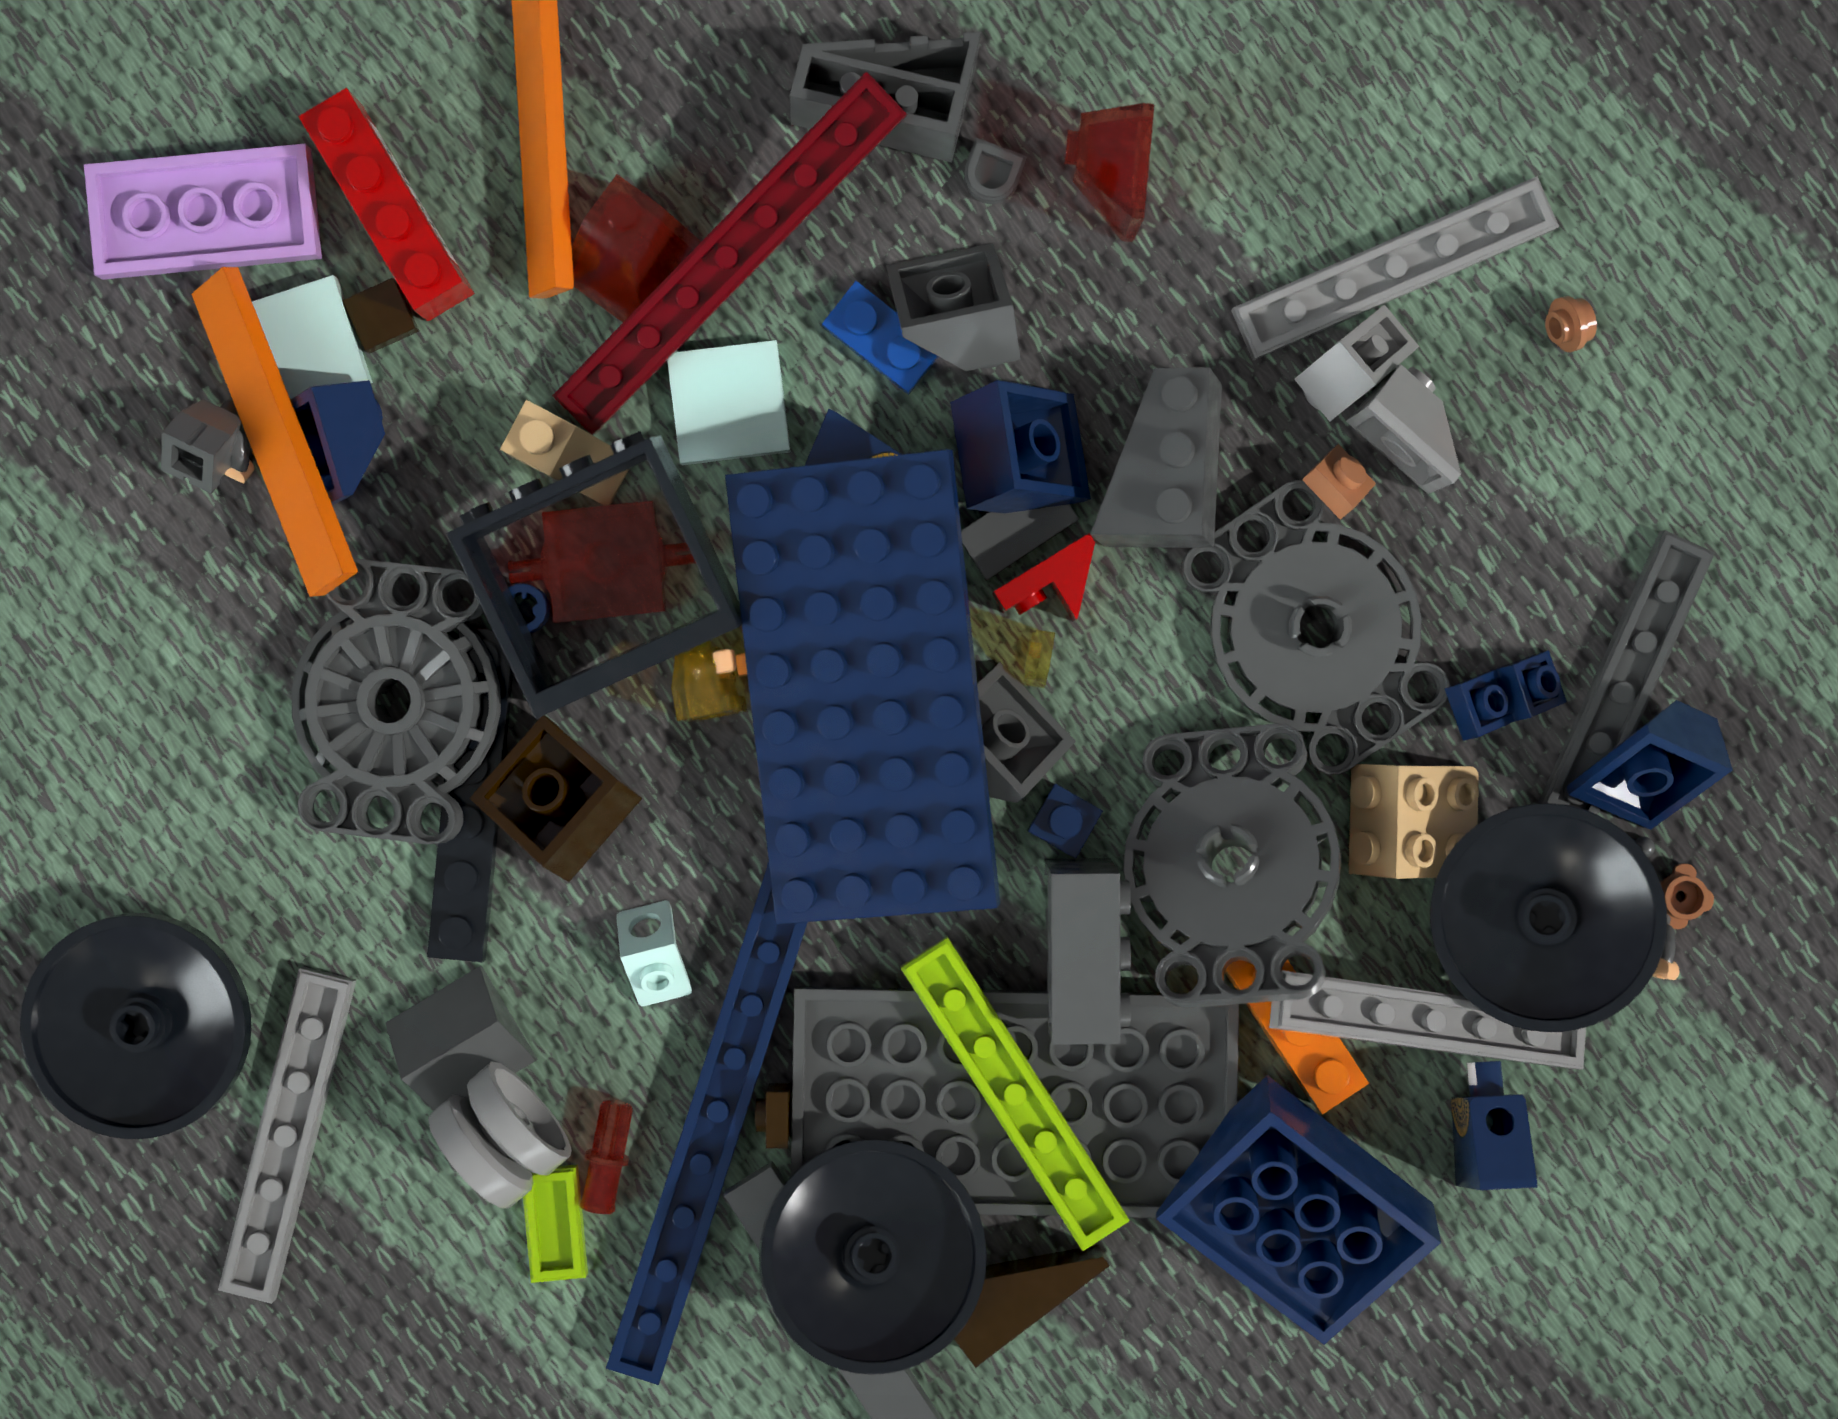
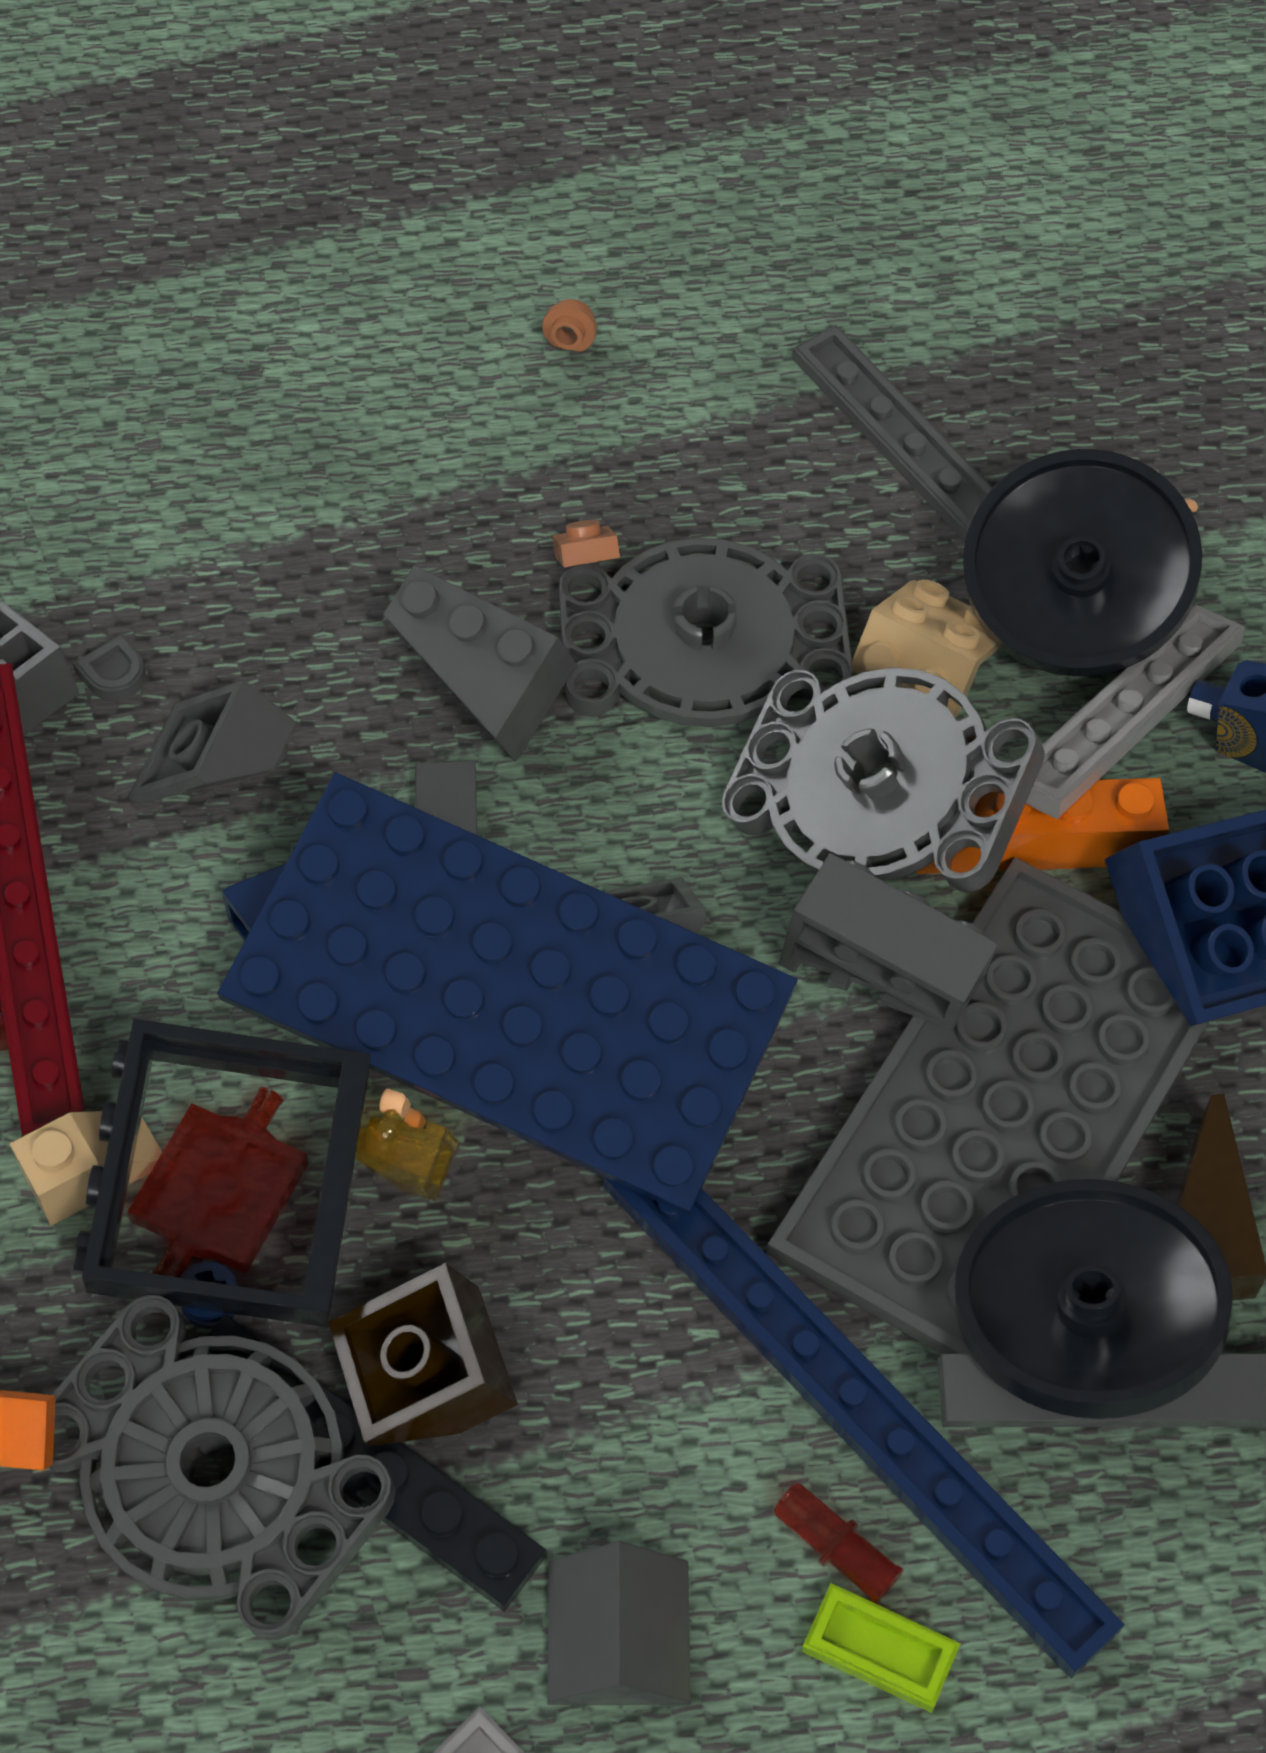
camera: 60 degrees left, 30 degrees down
(499, 1135) = (745, 1614): light grey wheel -> none
(654, 960) = (652, 1366): light aqua bracket -> none
(728, 402) = (147, 979): light aqua tile -> none
(774, 1115) = (891, 1336): dark brown plate -> none
(876, 336) = (190, 833): blue plate -> none
(1015, 1093) = (997, 1092): lime tile -> none
(1019, 448) = (376, 752): dark blue slope -> none
(1038, 653) = (579, 855): clear yellow tile -> none
(1064, 820) = (751, 921): dark blue plate -> none
(1065, 573) = (522, 797): red slope -> none
(1113, 163) = (186, 557): clear red slope -> none
(1356, 363) = (493, 487): light grey slope -> none
(1395, 268) = (430, 430): light grey tile -> none
(1410, 428) = (582, 470): light grey slope -> none
(1505, 695) = (862, 522): dark blue slope -> none
(1657, 767) = (995, 431): dark blue slope -> none

